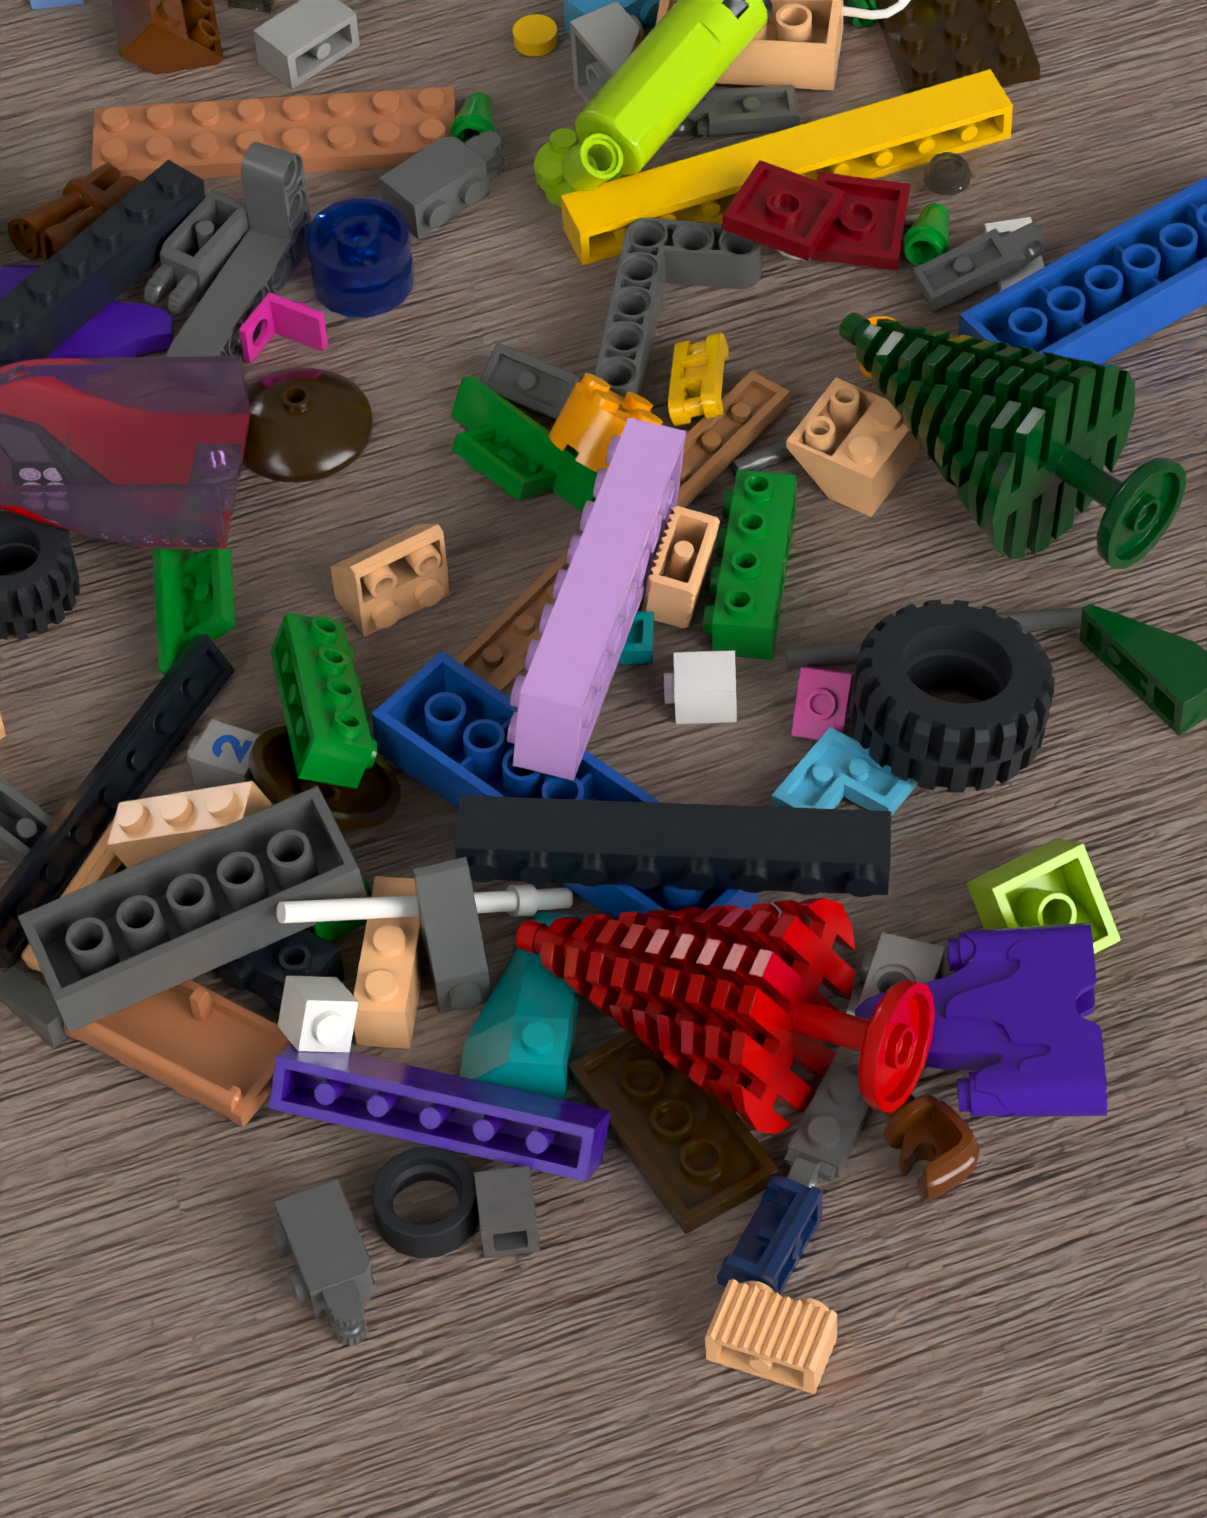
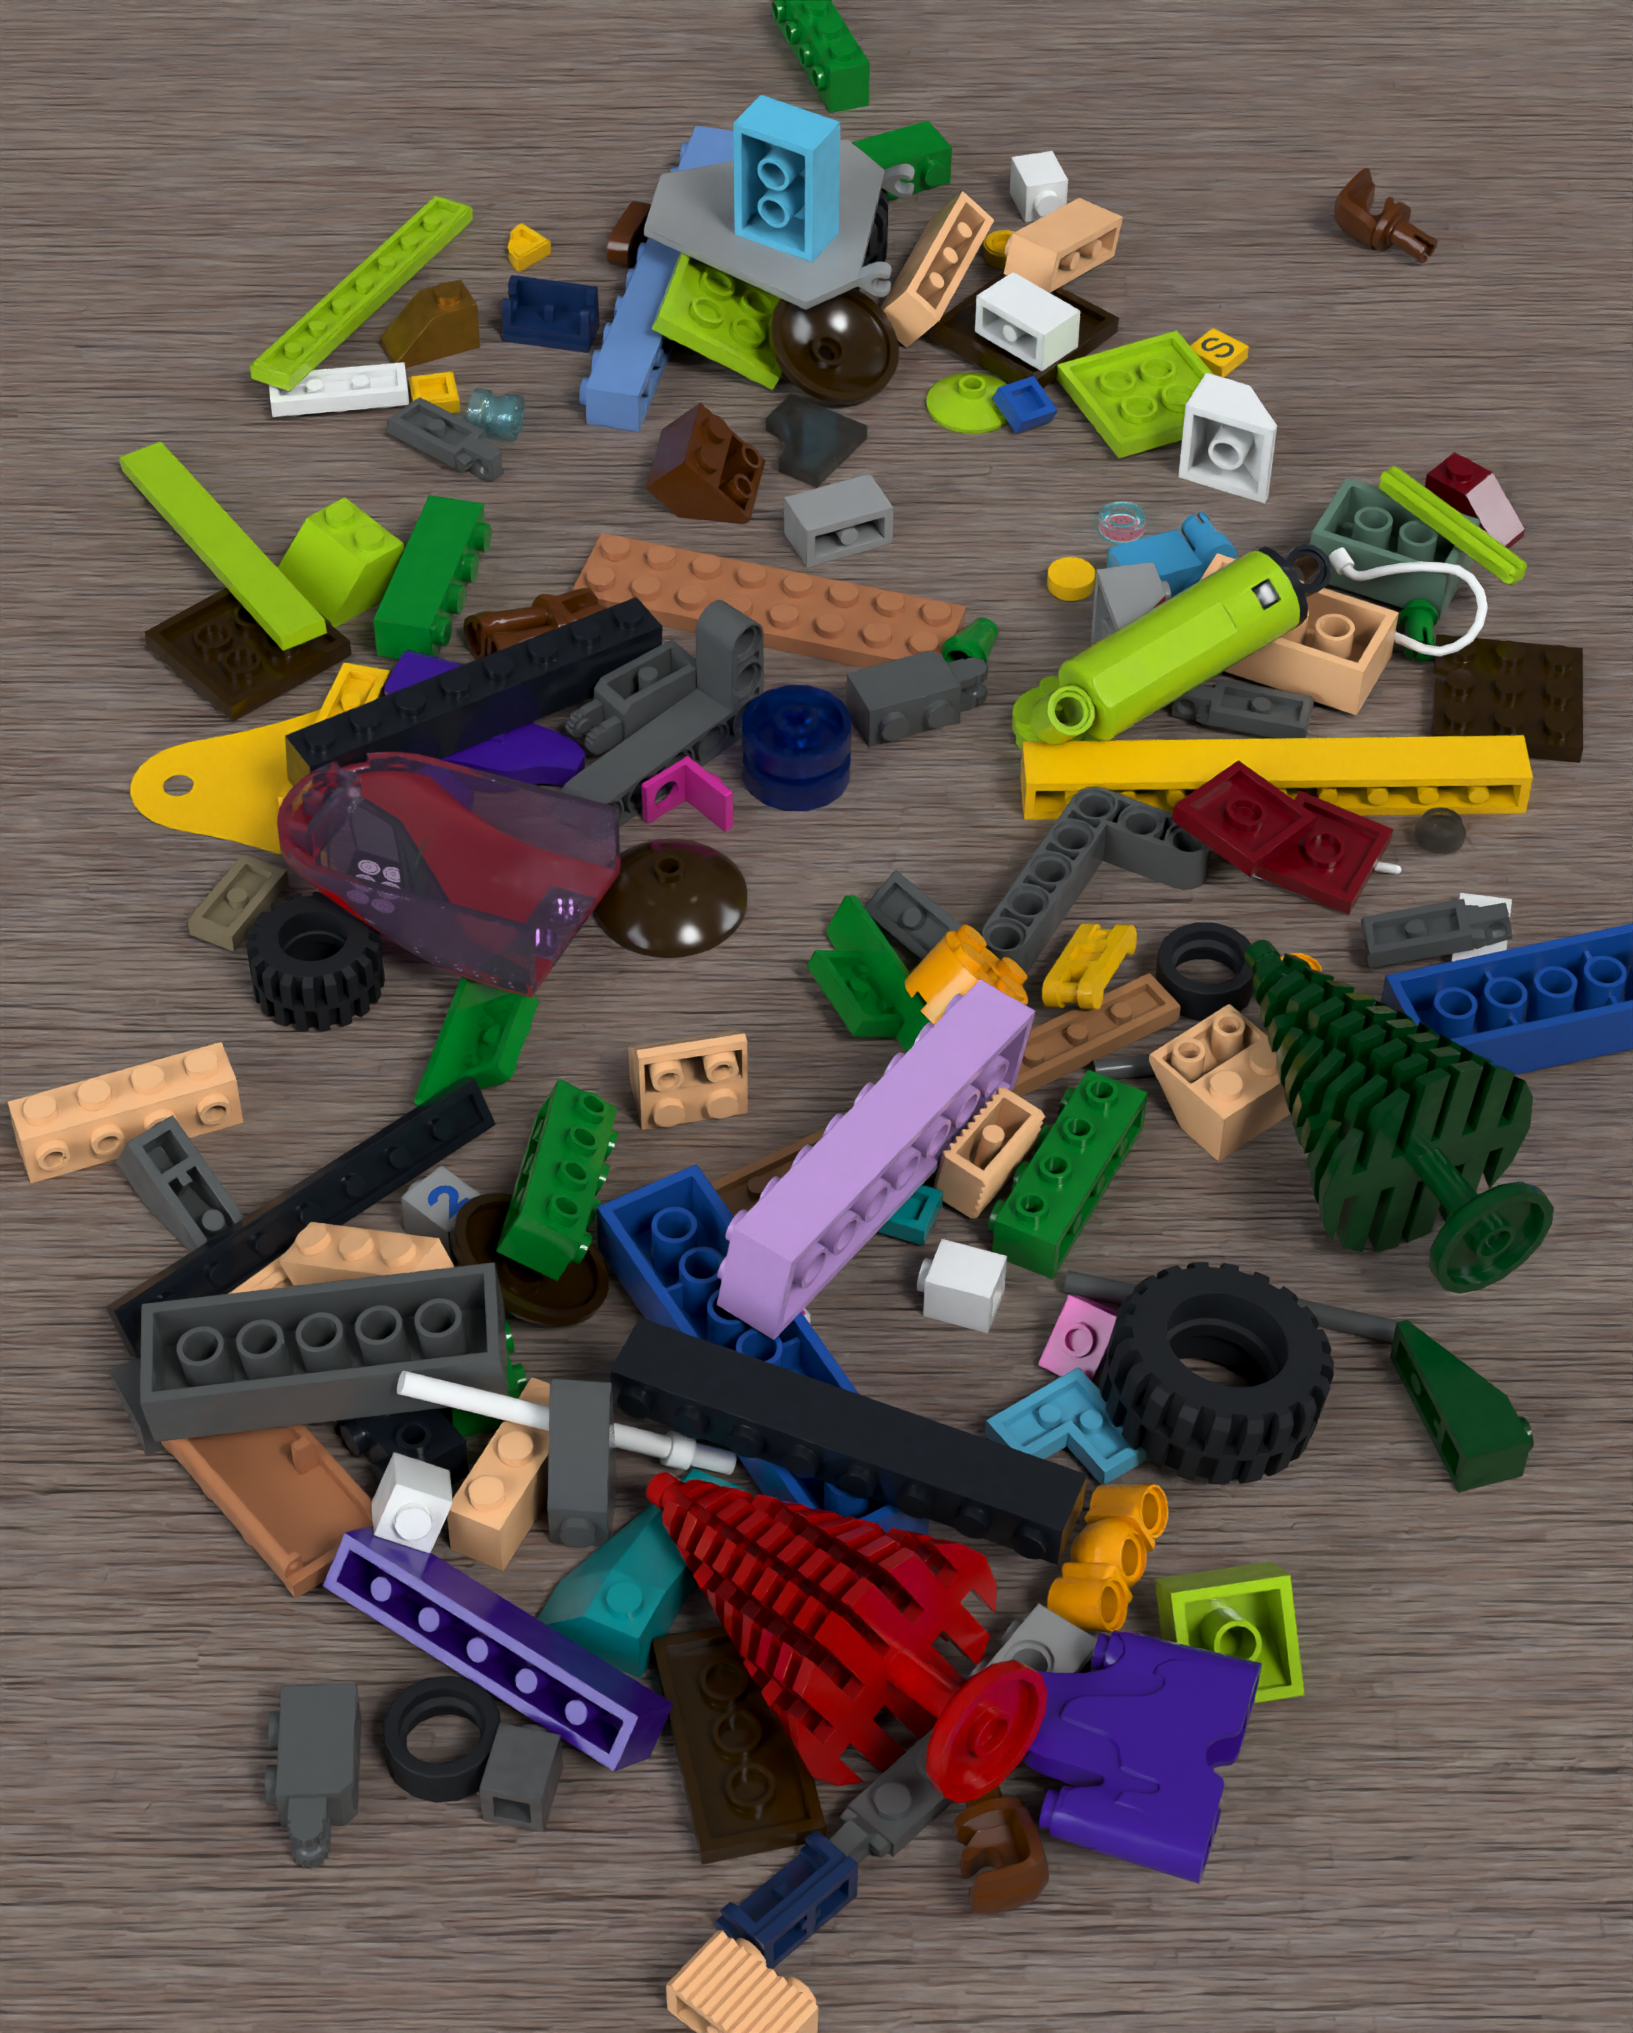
camera: 15 degrees right, 5 degrees down
(799, 328) = (1210, 942): none -> black tyre
(921, 875) = (1109, 1556): none -> light orange piece
(928, 235) = (1393, 886): green cone -> none

